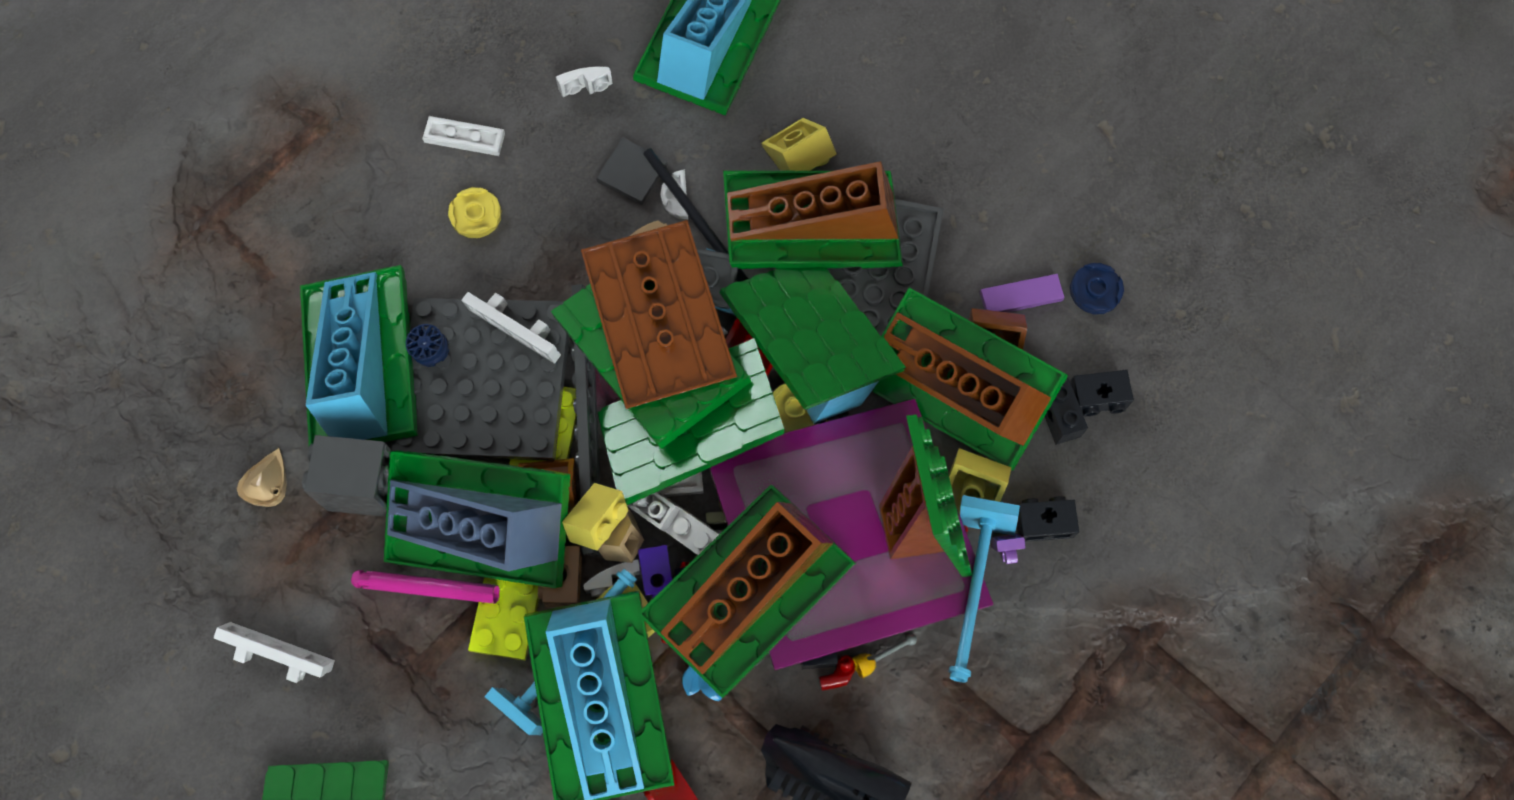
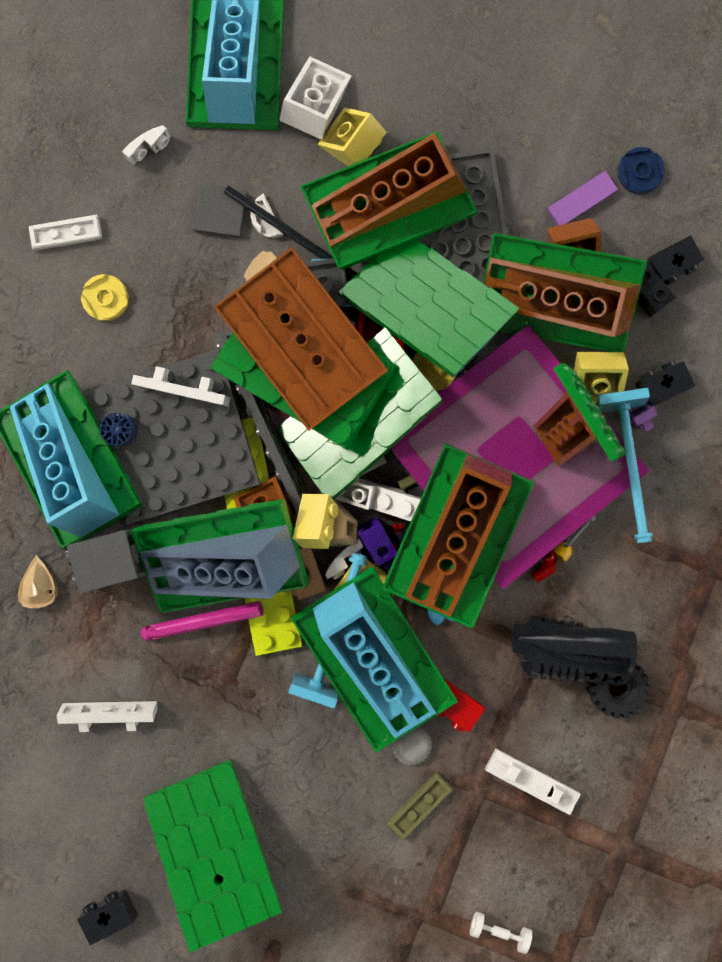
camera: 20 degrees left, 15 degrees up
(774, 97) = (314, 97): none -> white slope

